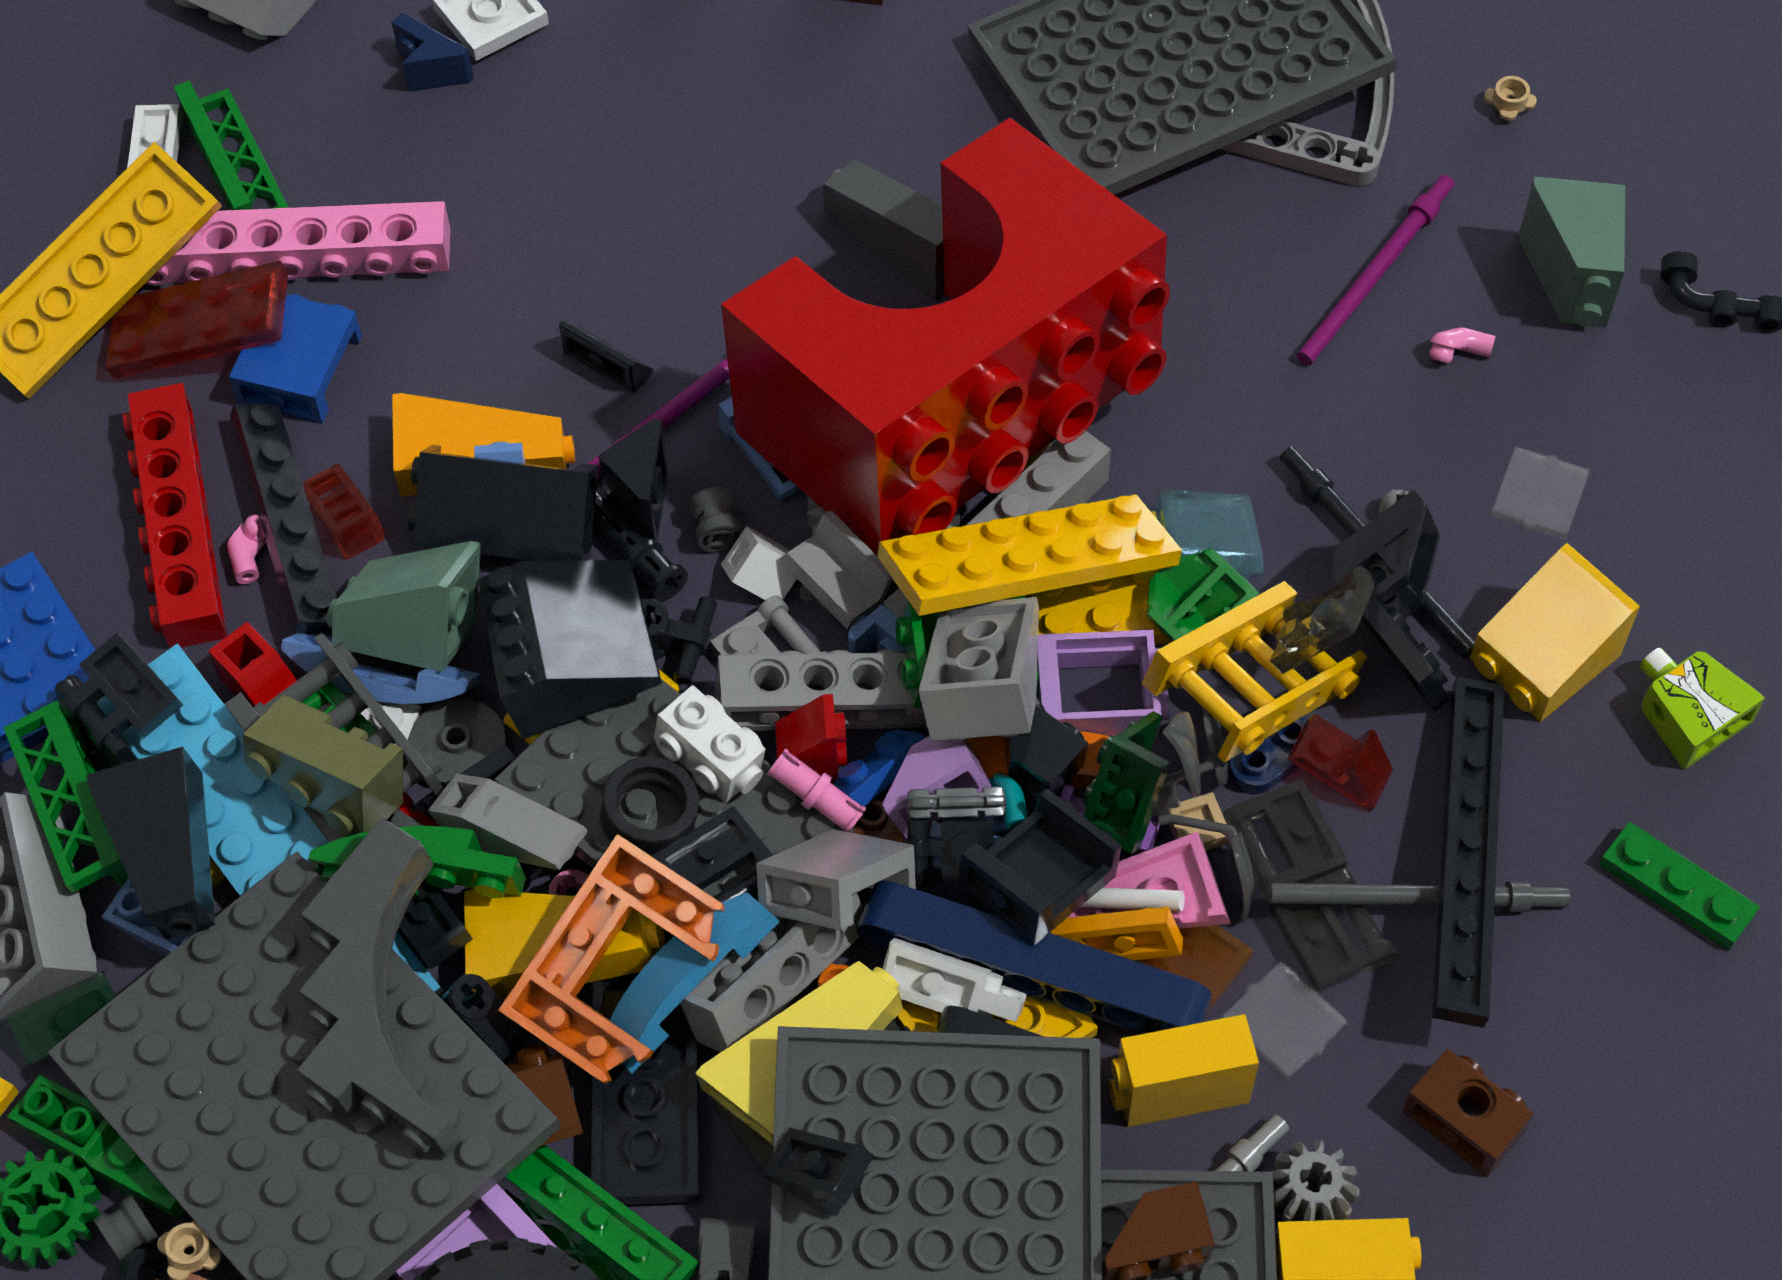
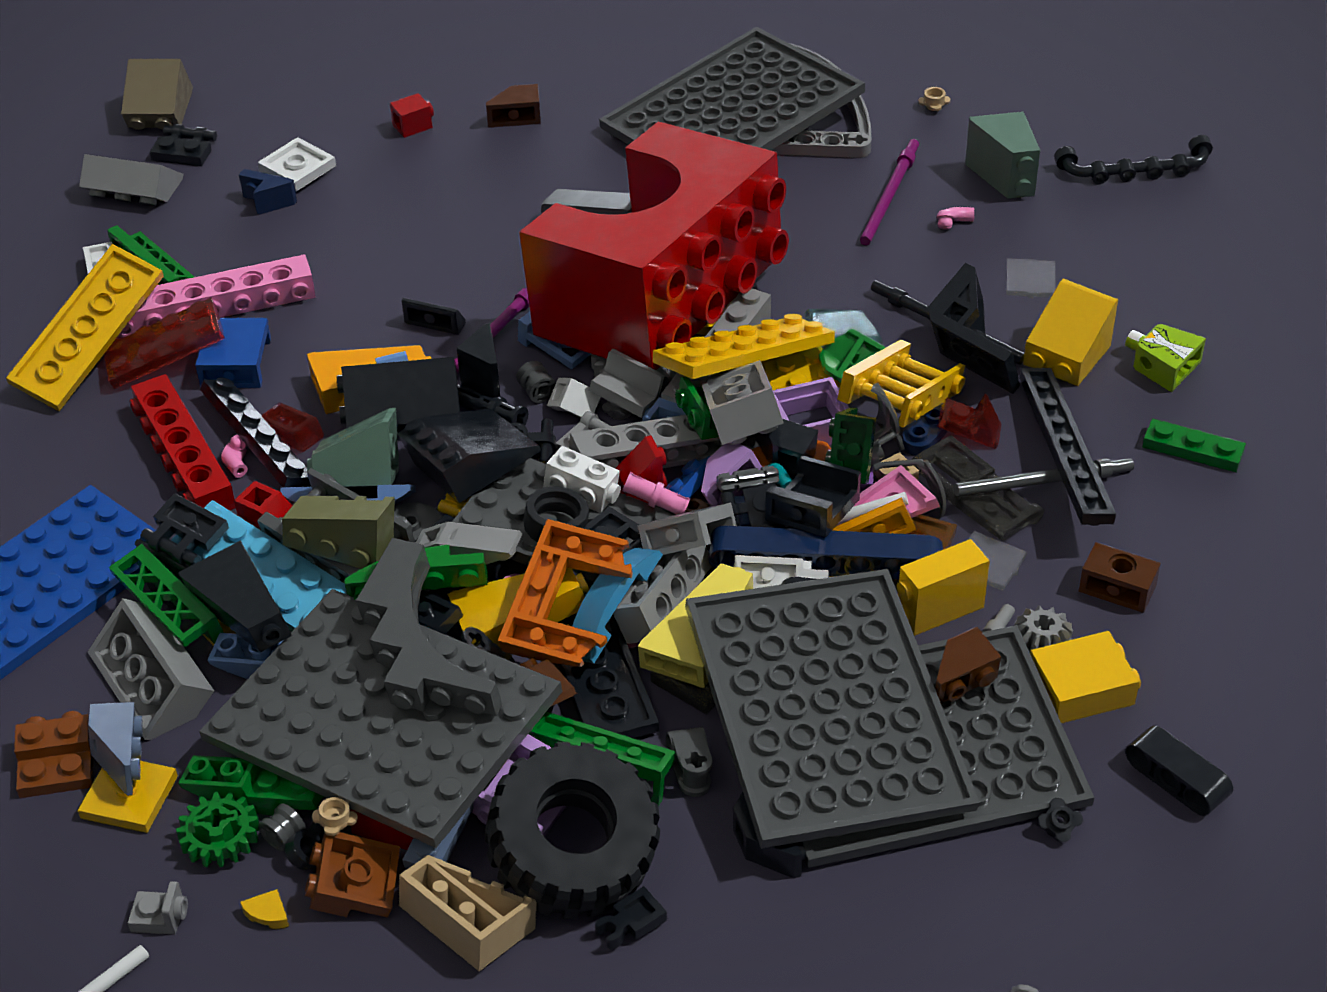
camera: 15 degrees left, 15 degrees down
(53, 1018) = (184, 729): clear green plate -> none
(817, 1169) = (743, 662): black slope -> none
(1322, 619) = (935, 342): clear smoke plate -> none

